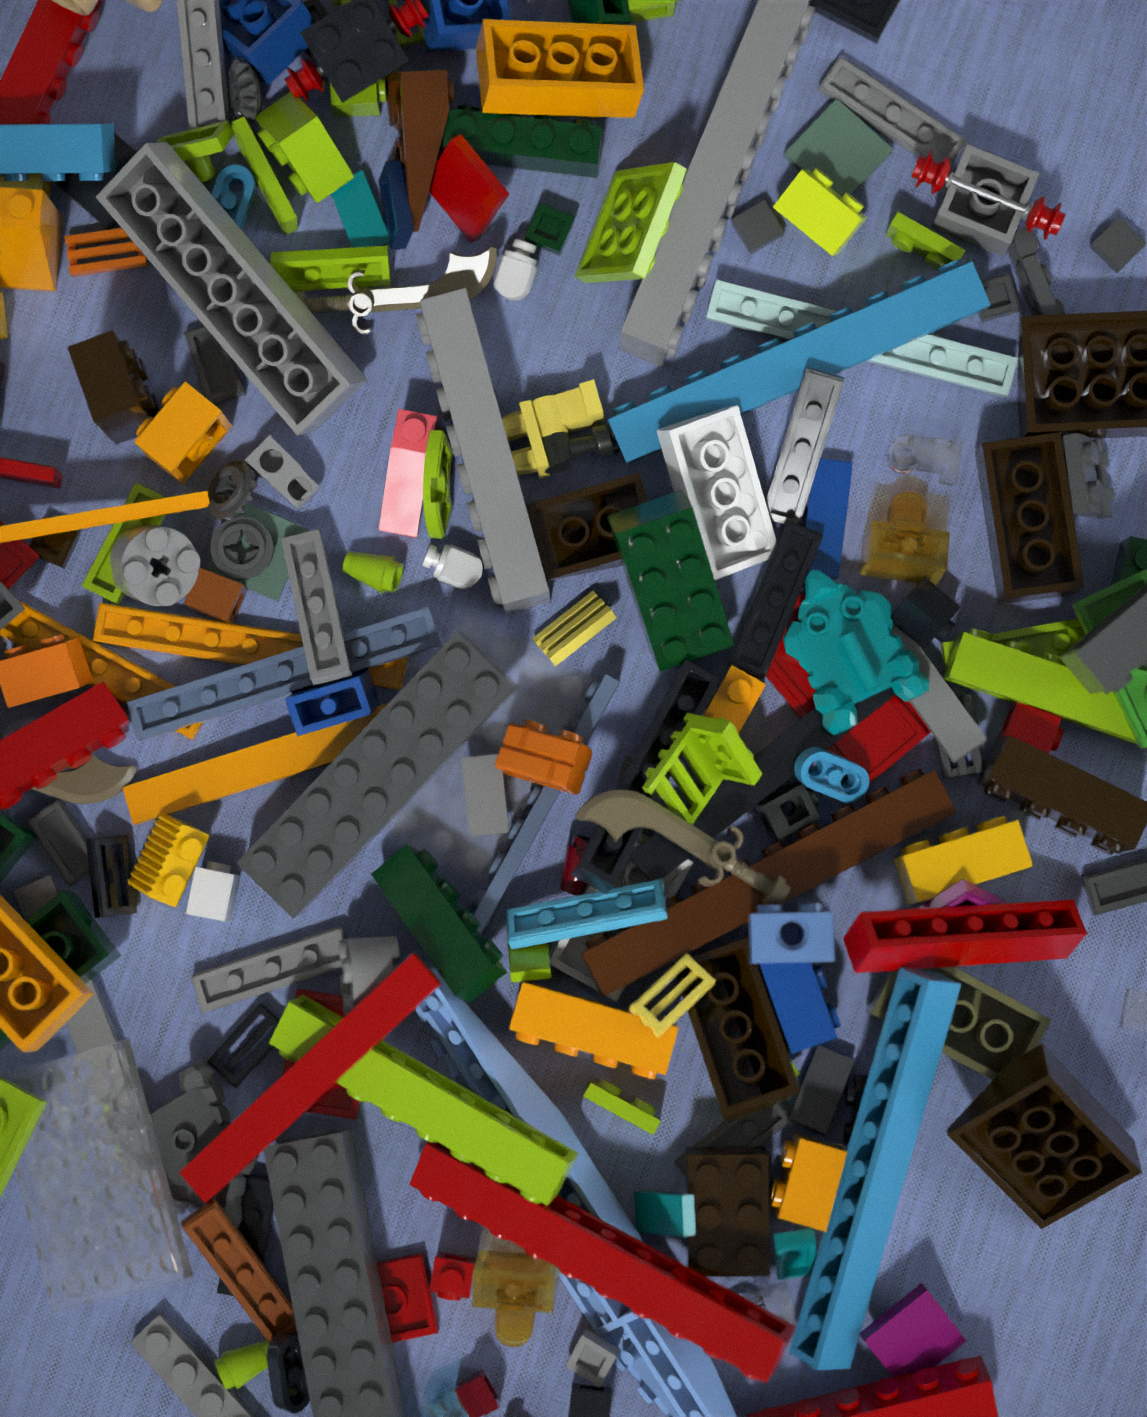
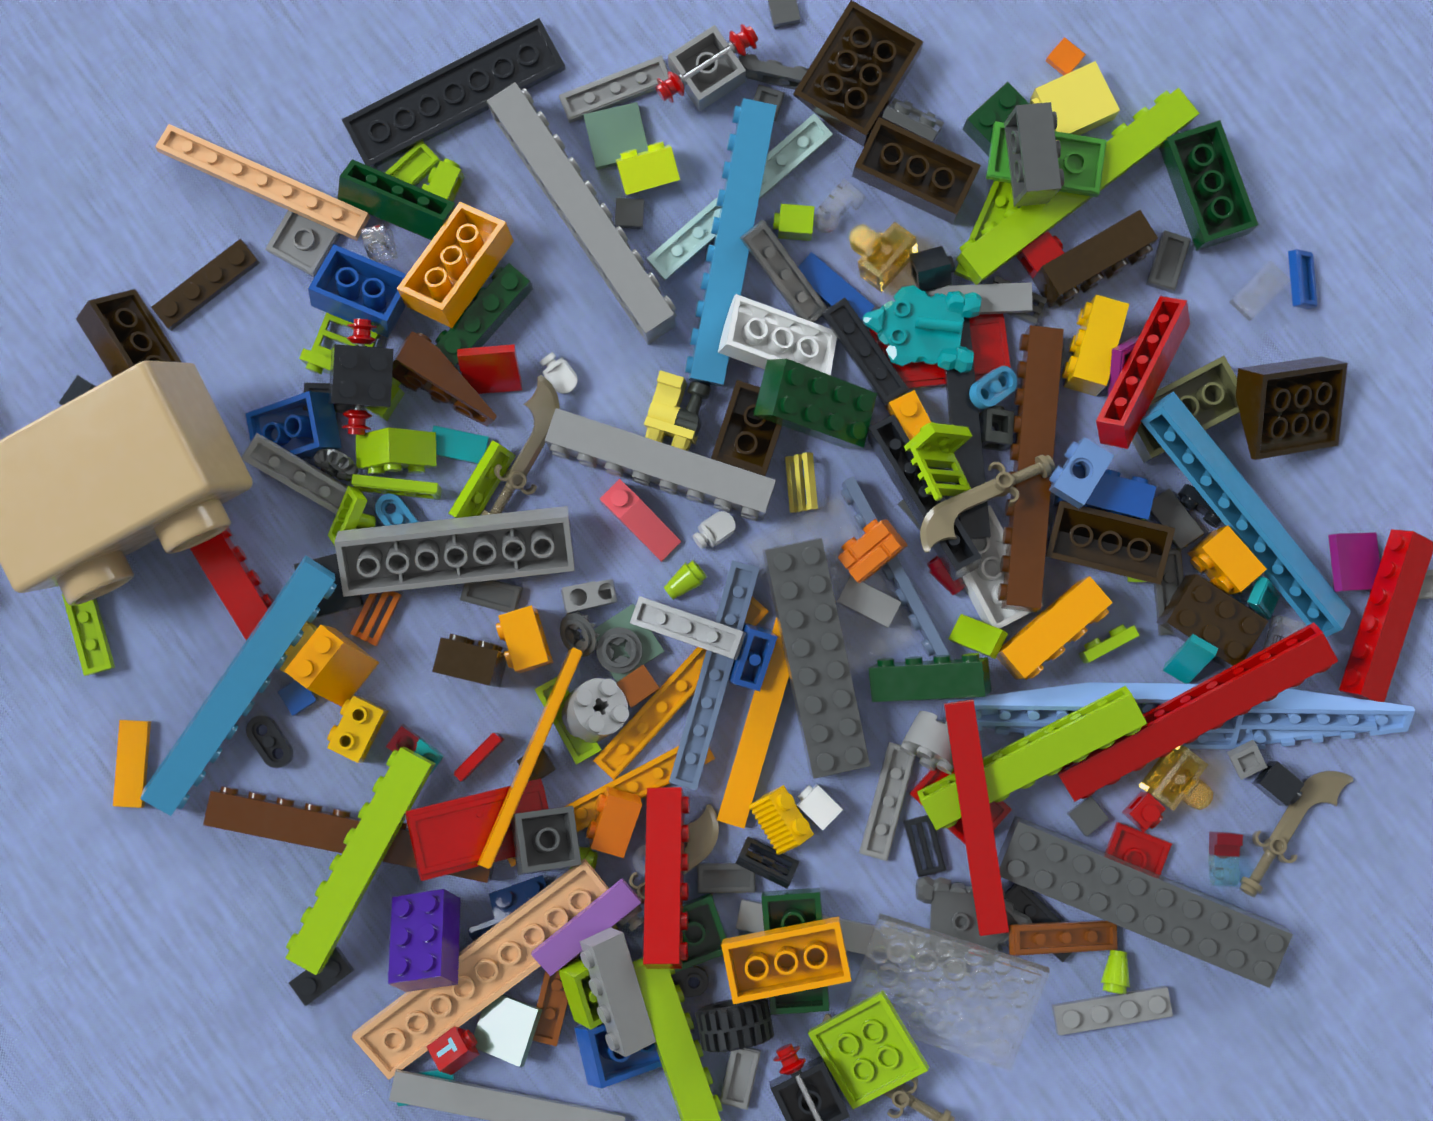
camera: 60 degrees left, 0 degrees up
(287, 1373) = (1140, 949): black plate -> none
(395, 205) = (470, 419): dark blue tile -> none
(406, 1213) = (1087, 816): none -> dark grey tile
(436, 484) = (660, 506): lime tile -> none
(549, 229) = (547, 337): dark green plate -> none
(586, 914) = (982, 587): medium azure tile -> none
(631, 223) = (581, 284): lime plate -> none
(649, 1017) = (1072, 589): light yellow tile -> none
(874, 420) = (794, 222): none -> lime brick
(912, 236) = (697, 126): lime plate -> none

